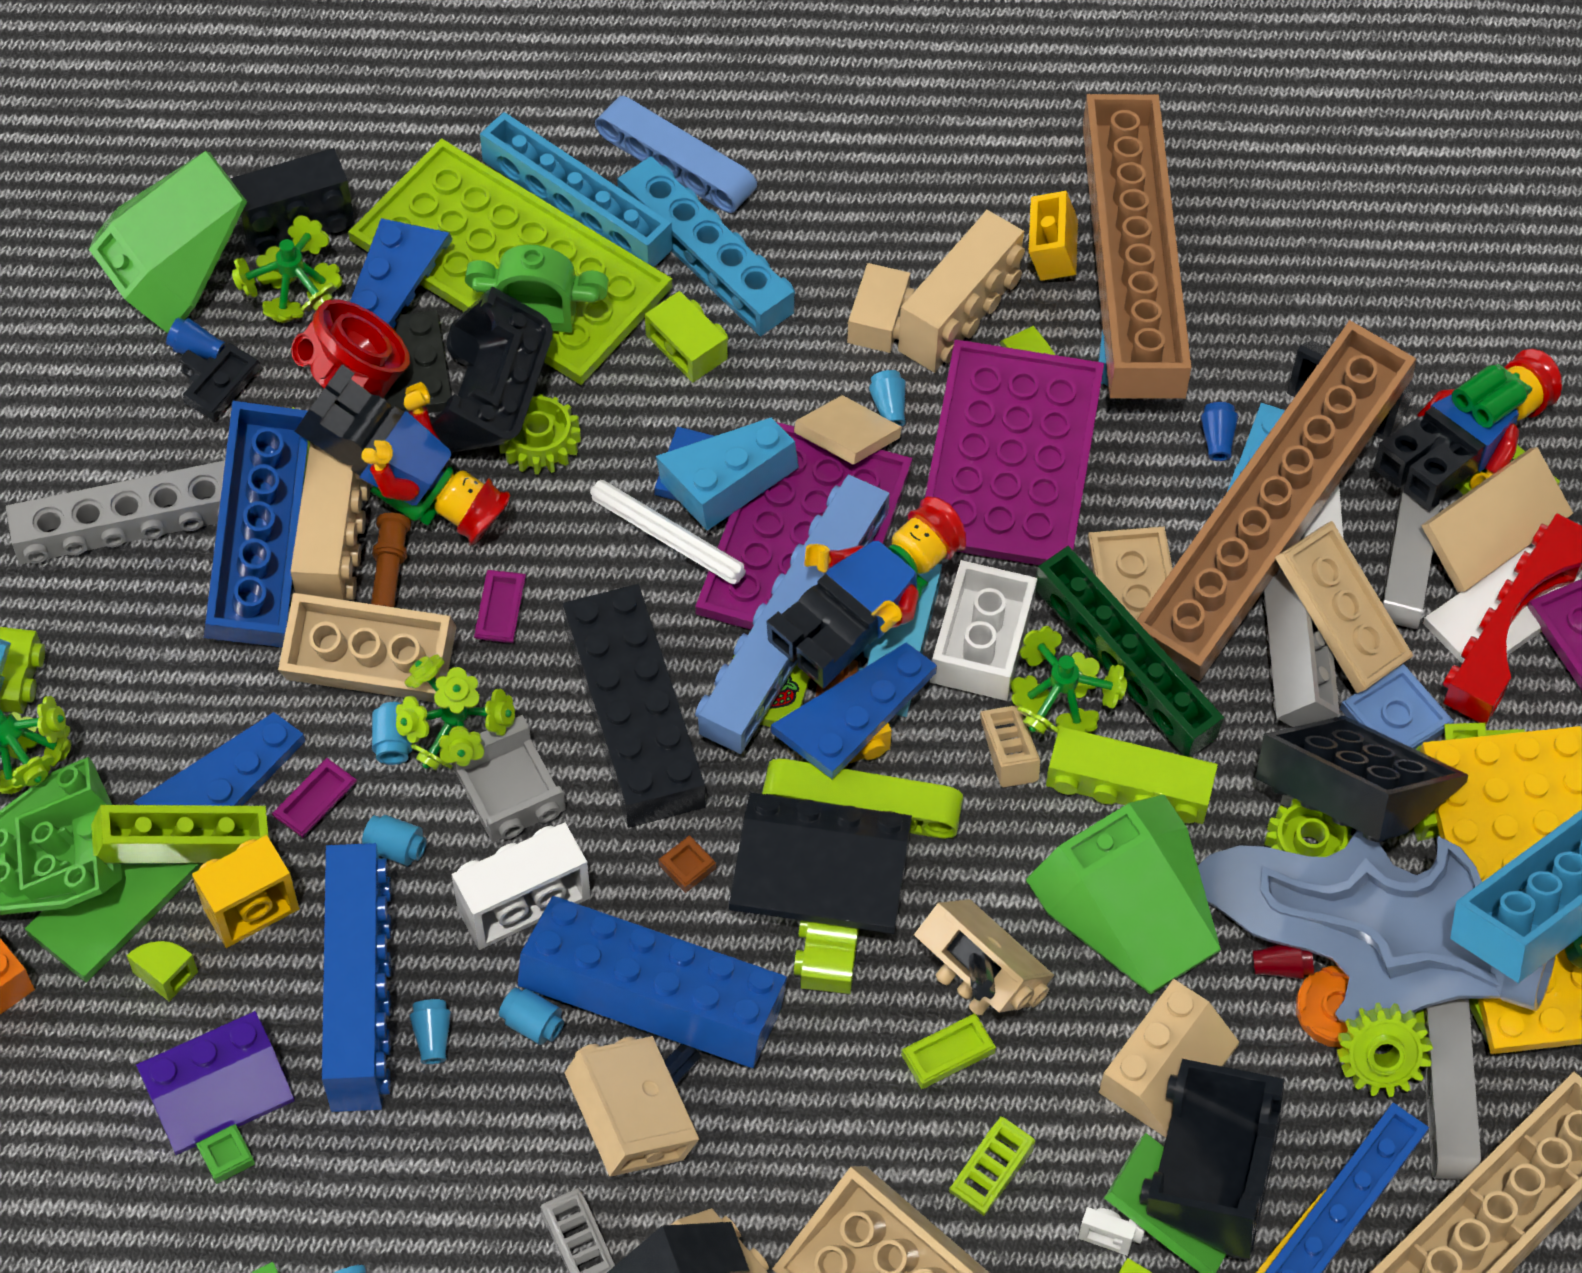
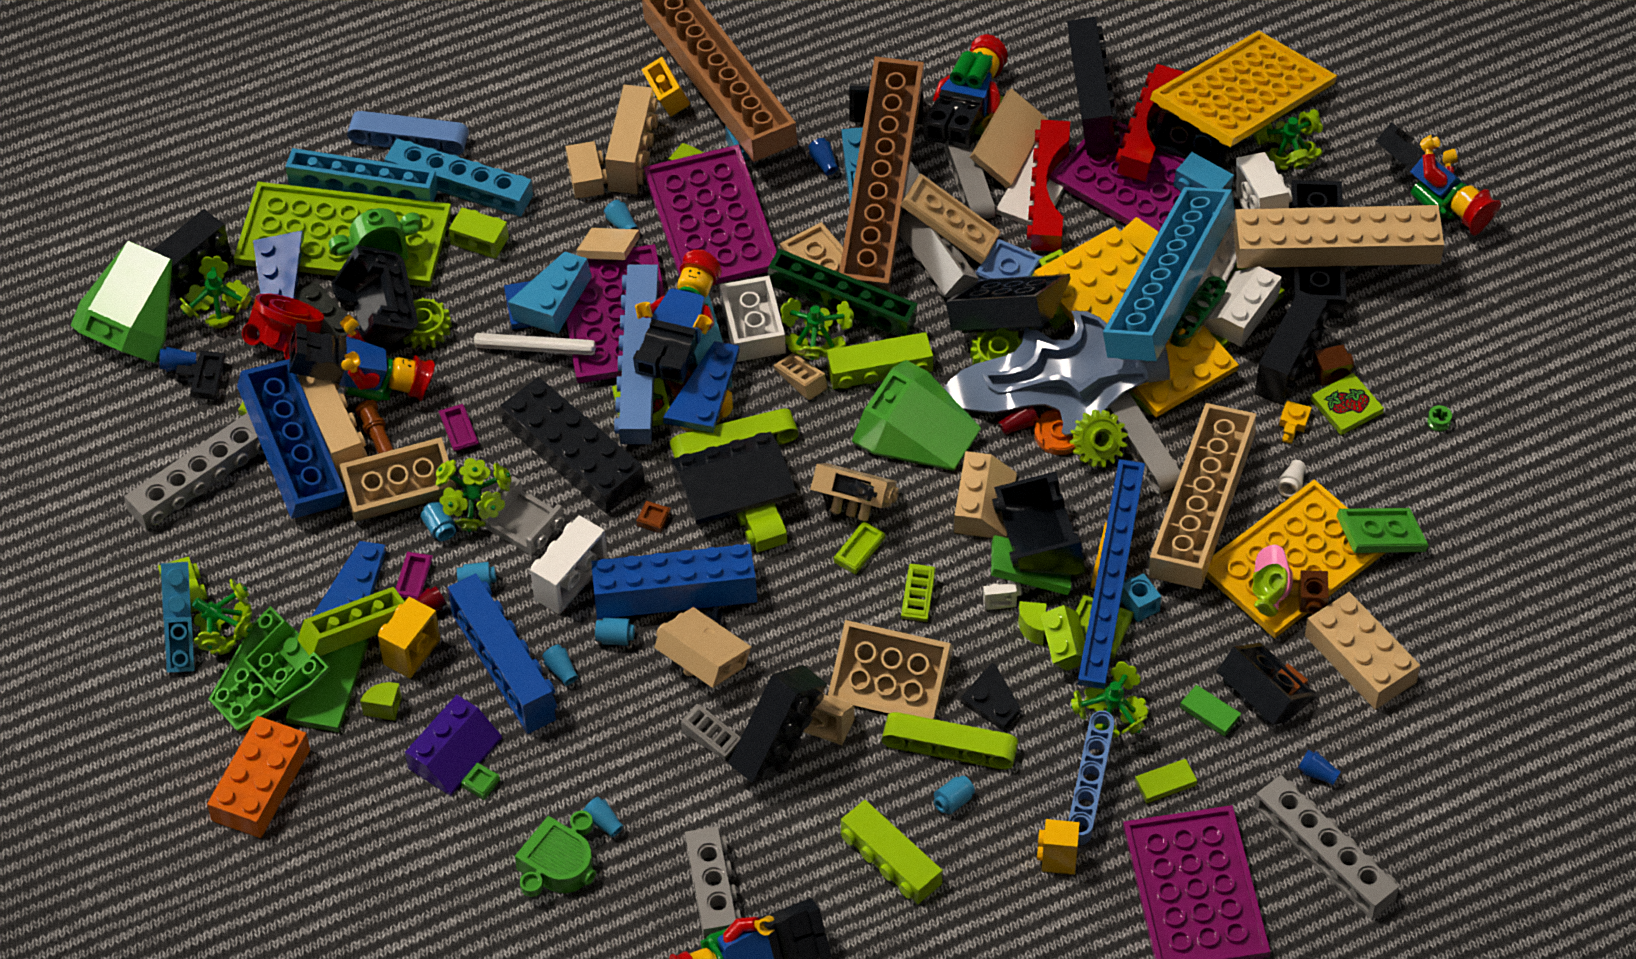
camera: 25 degrees left, 5 degrees down
(305, 848) = (432, 598): none -> dark red cone

